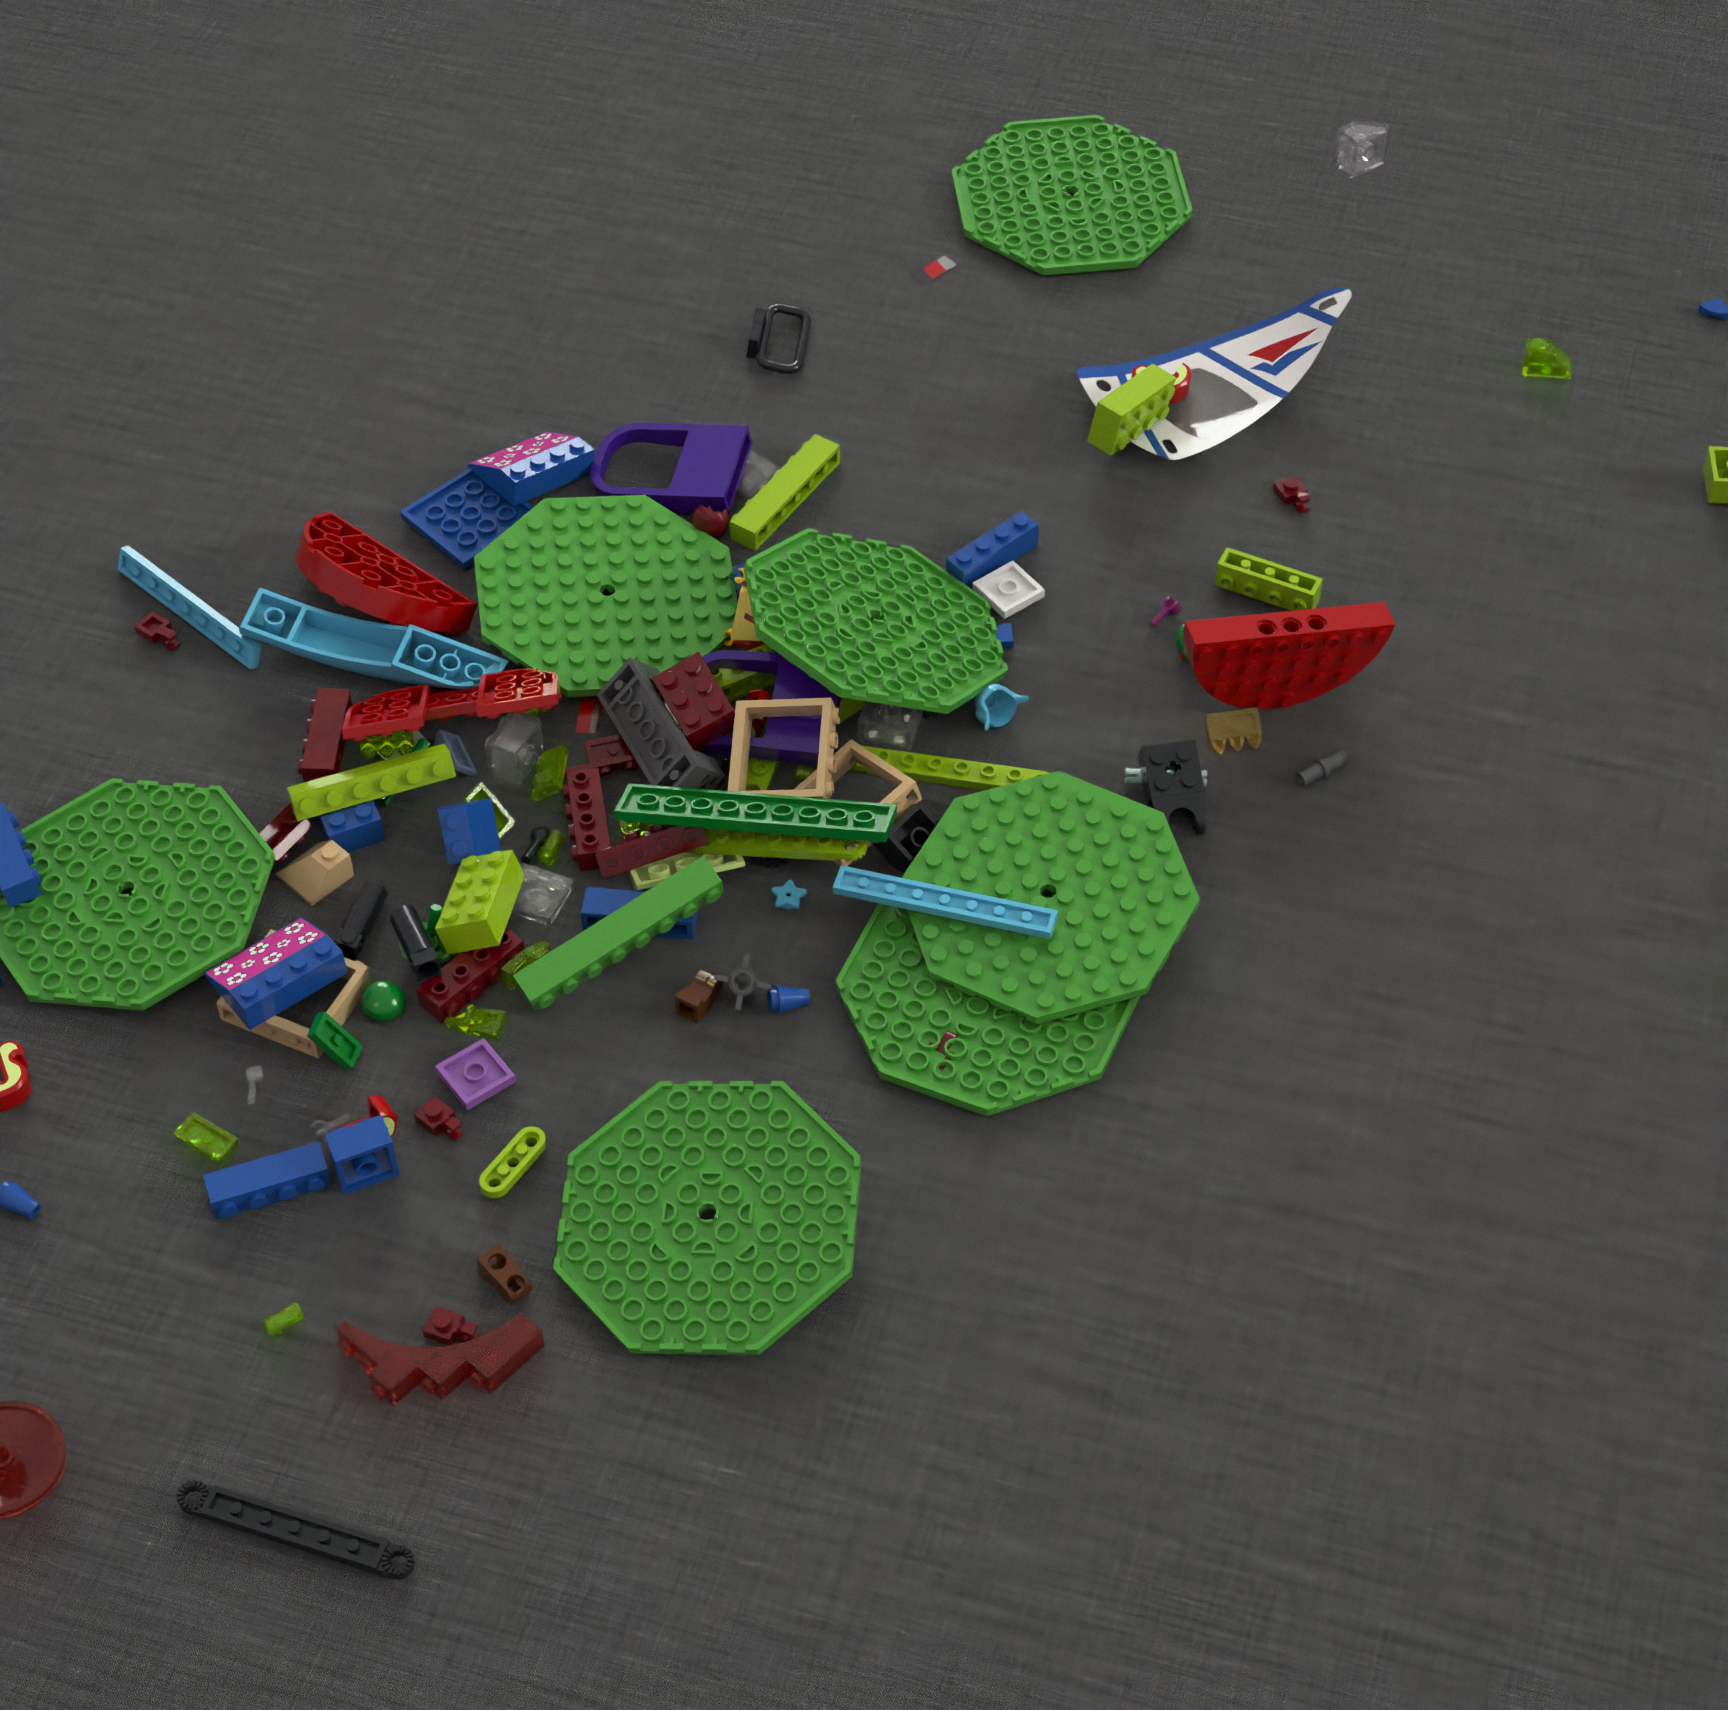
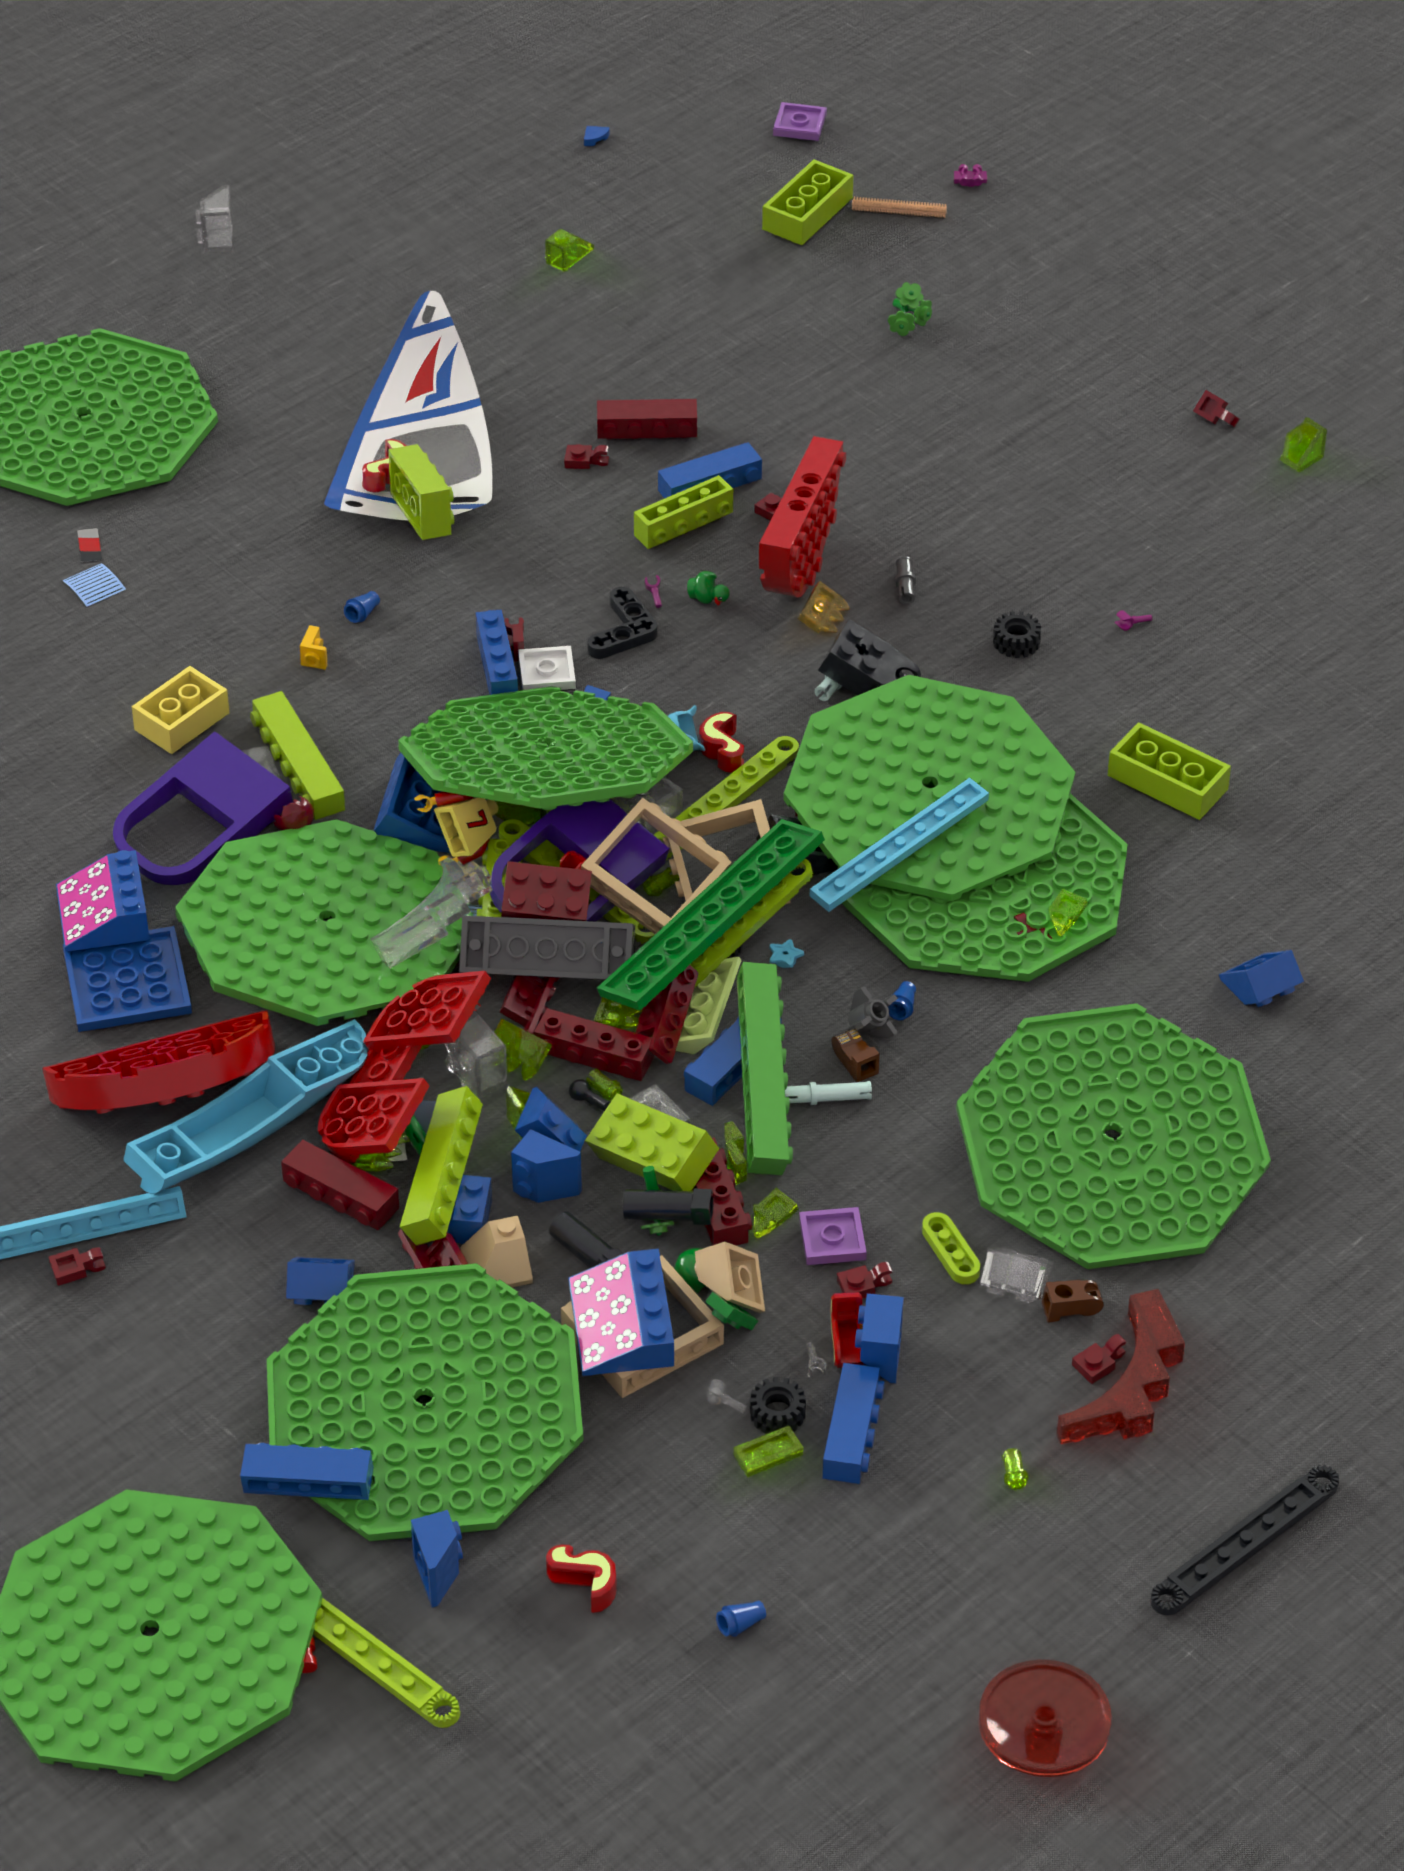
camera: 60 degrees left, 5 degrees down
(227, 767) = (317, 1278): none -> blue slope
(256, 1109) = (777, 1392): none -> black tyre
(369, 1025) = (731, 1274): none -> tan slope
(415, 846) = (545, 1169): none -> blue slope
(512, 1219) = (1016, 1273): none -> clear slope
(634, 988) = (828, 1092): none -> light aqua pin
(646, 646) = (439, 909): none -> clear arch
(760, 336) = (78, 692): black bar -> none
(776, 401) = (180, 709): none -> light yellow brick
(891, 293) = (95, 584): none -> light blue sticker
(912, 441) = (312, 650): none -> yellow bracket
(971, 1062) = (1066, 910): none -> clear neon green slope
(988, 447) = (360, 607): none -> blue cone
(1004, 1249) = (1263, 977): none -> blue slope
(1006, 729) = (719, 745): none -> red animal
(1026, 554) = (515, 636): none -> dark red plate
(1109, 625) = (639, 628): none -> black beam
(1218, 1061) = (1169, 770): none -> lime brick
(1317, 887) = (1017, 624): none -> black tyre
(1341, 578) = (734, 465): none -> blue brick
(1368, 506) = (646, 418): none -> dark red brick
(1408, 948) = (1127, 621): none -> magenta hand
(1685, 596) = (908, 300): none -> bright green plant

